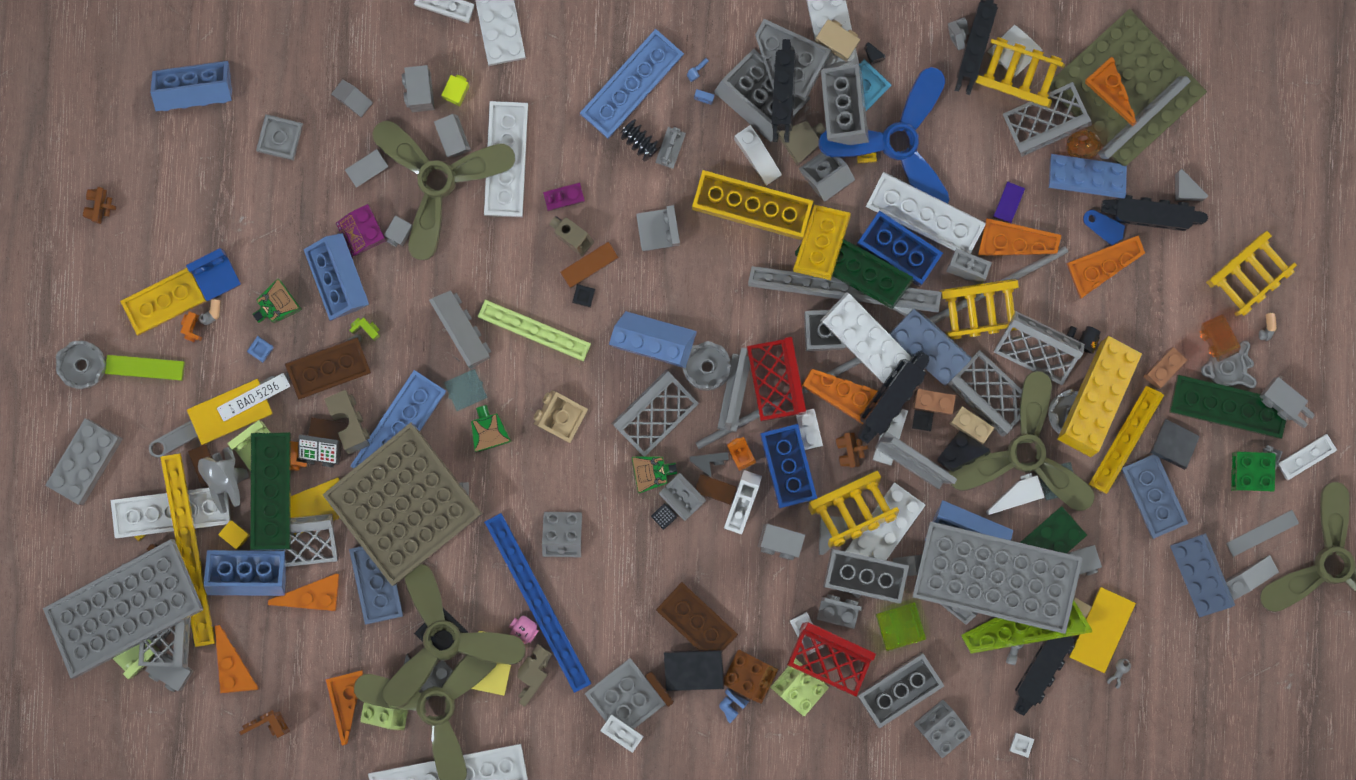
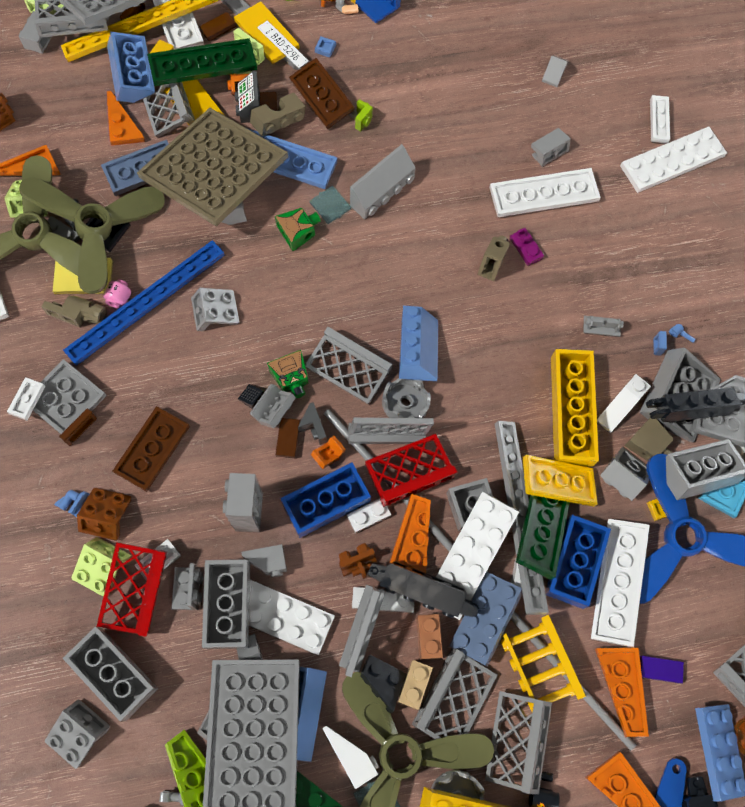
camera: 80 degrees right, 15 degrees down
(222, 477) = (208, 28): light grey piece -> none
(232, 671) = (49, 76): orange wing -> none
(276, 303) = (367, 47): torso -> none
(279, 137) = (505, 27): light grey tile -> none
(336, 276) = (403, 85): medium blue slope -> none
(361, 230) = (448, 97): magenta slope -> none
(366, 168) = (502, 87): light grey hinge -> none
(398, 232) = (454, 122): light grey brick -> none
(419, 88) = (583, 109): light grey brick -> none
(455, 89) = (591, 141): neon yellow brick -> none
(475, 166) = (530, 165): olive piece -> none
(534, 330) = (398, 249): yellowish green tile -> none
(559, 416) = (325, 282): tan plate -> none
(583, 295) = (441, 282): black tile -> none
(589, 265) = (471, 280): dark orange tile -> none
(631, 83) = (649, 280): medium blue plate -> none
(639, 140) = (599, 296): black piece -> none
(658, 229) = (523, 331): light grey bracket -> none
(694, 670) = (101, 456): black tile -> none
(743, 502) = (281, 465): white slope -> none
(854, 491) = (316, 573): yellow fence -> none
(900, 626) = (182, 659): clear neon green slope -> none
(922, 420) = (406, 631): black tile -> none
(969, 266) = (581, 640): light grey hinge -> none

